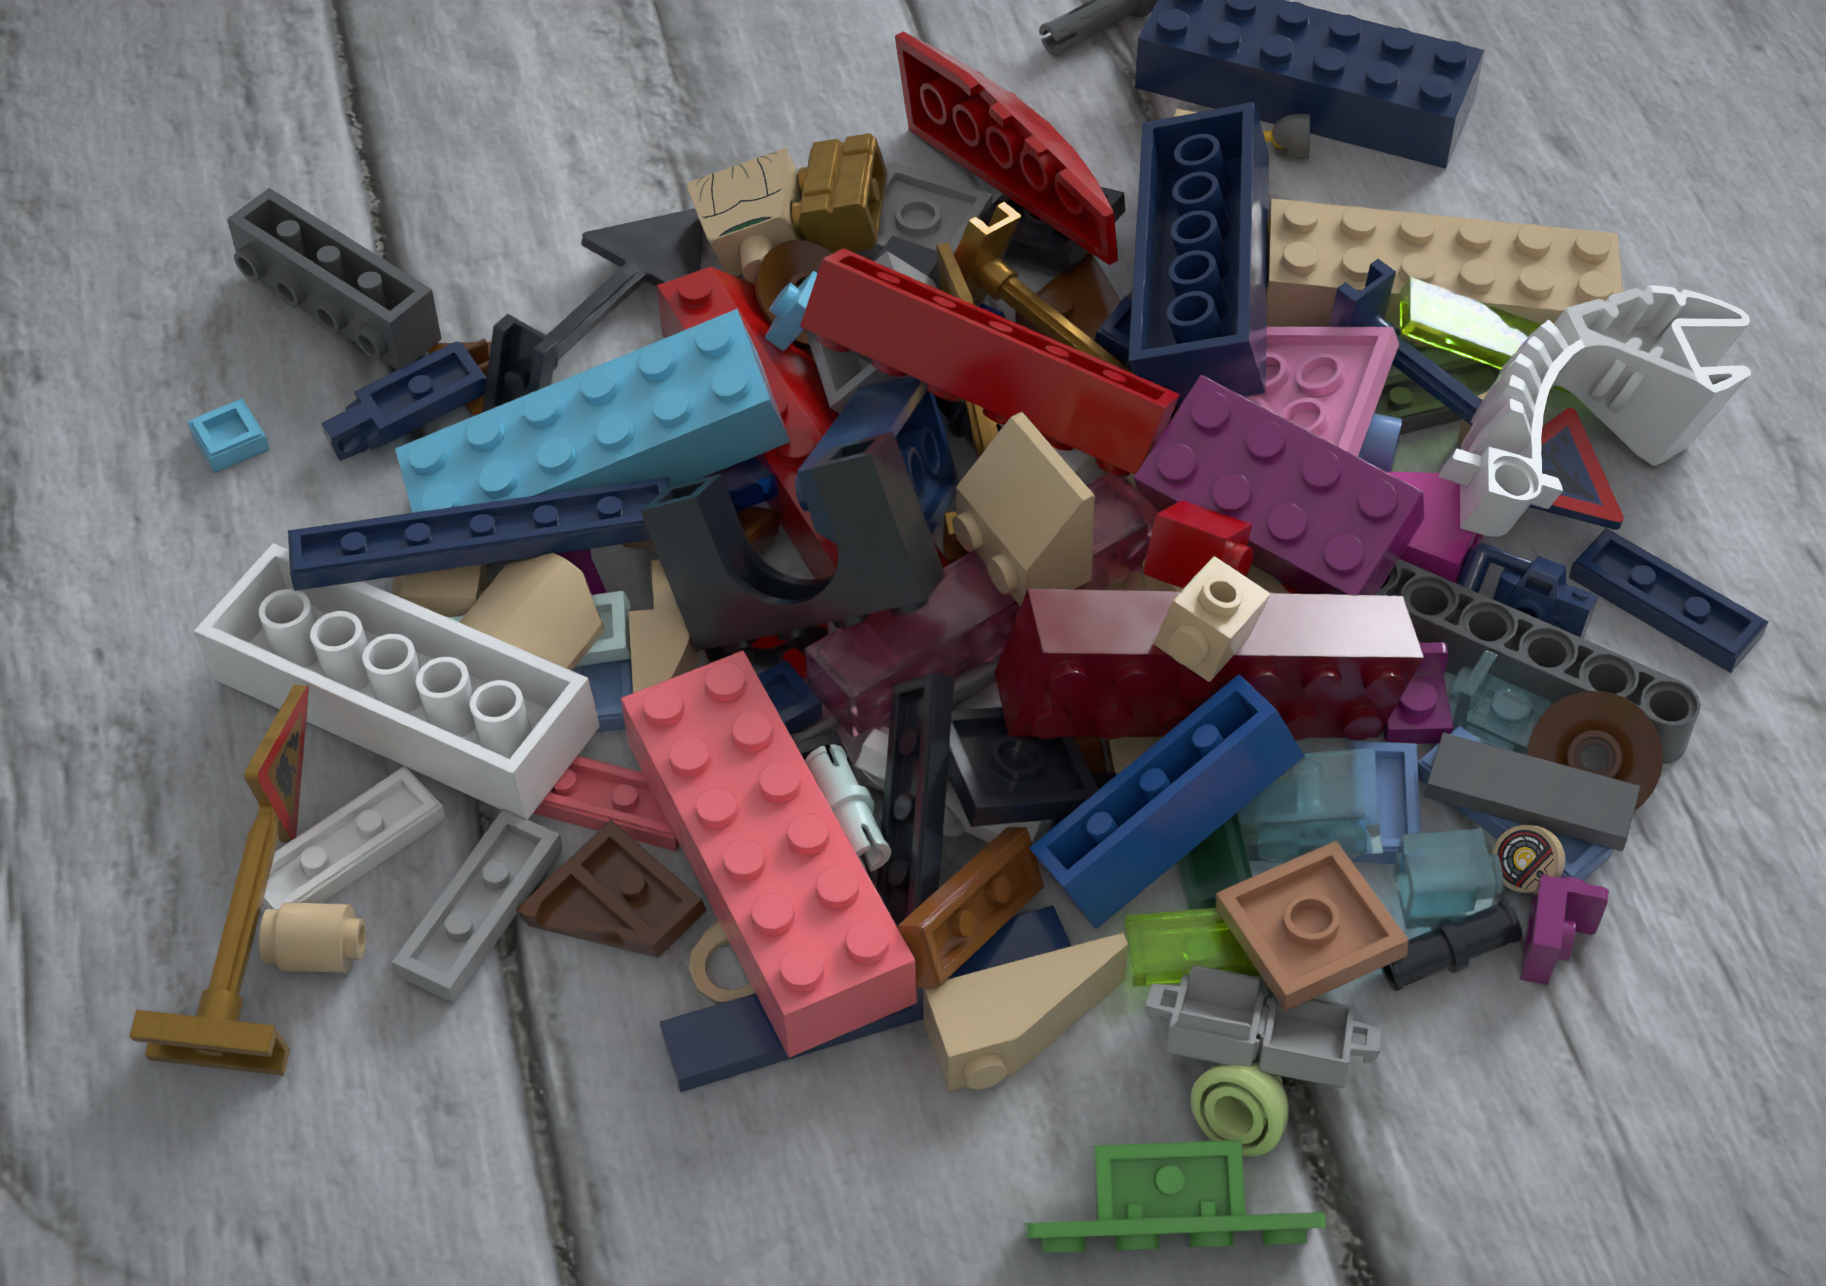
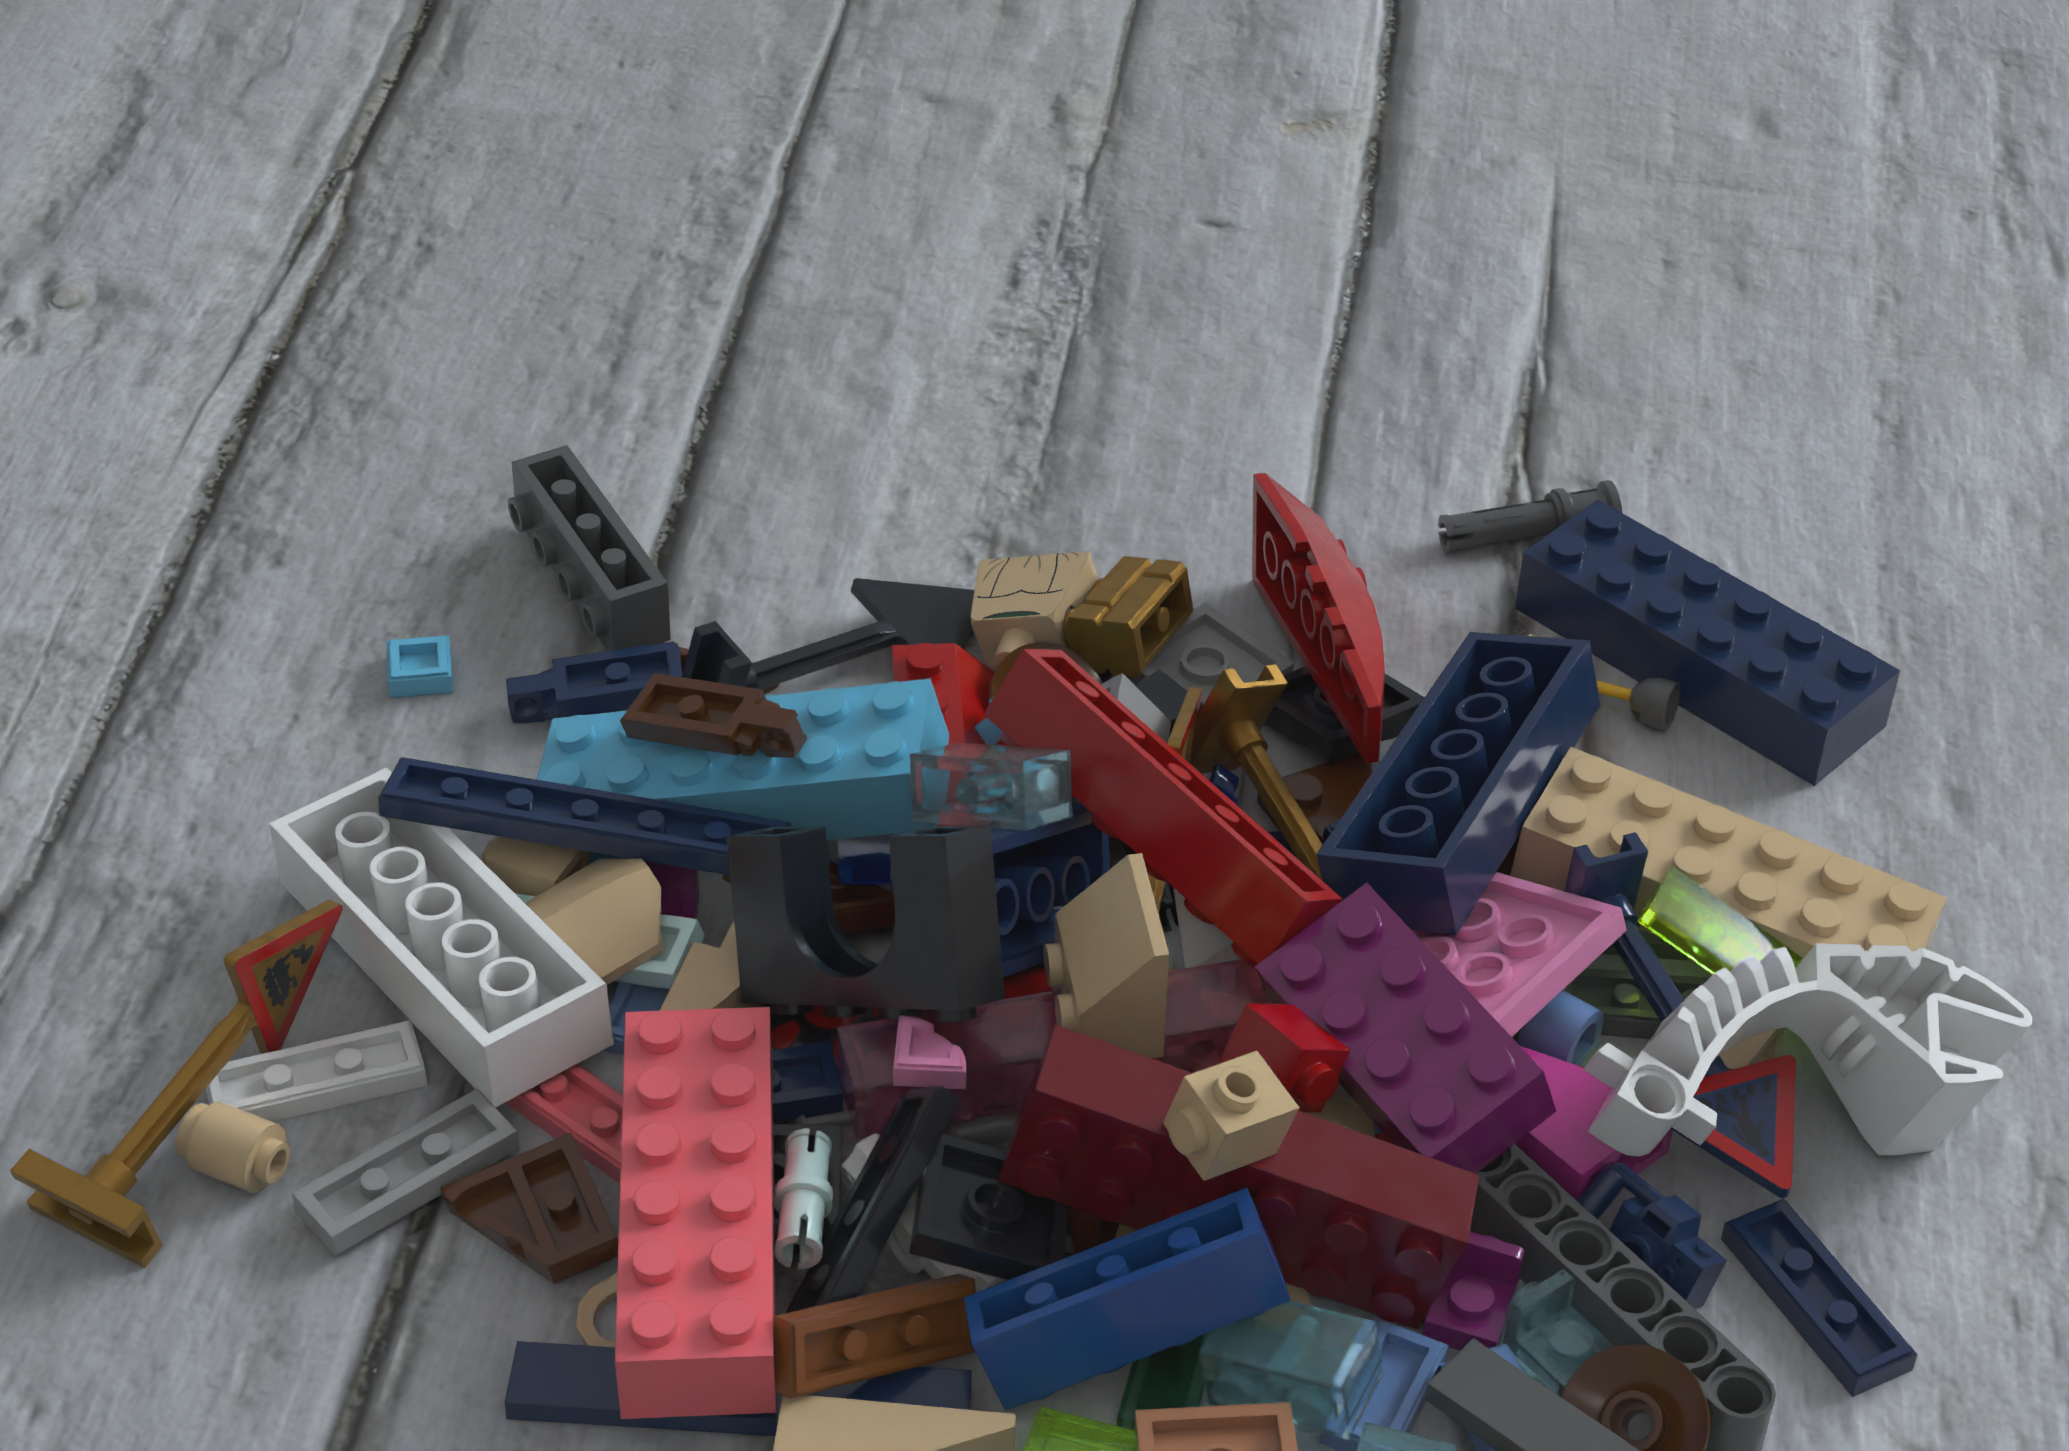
camera: 20 degrees right, 10 degrees down
(562, 405) = (712, 718): none -> reddish brown hinge
(840, 390) = (991, 786): none -> clear light blue brick
(899, 649) = (926, 1057): none -> bright pink tile

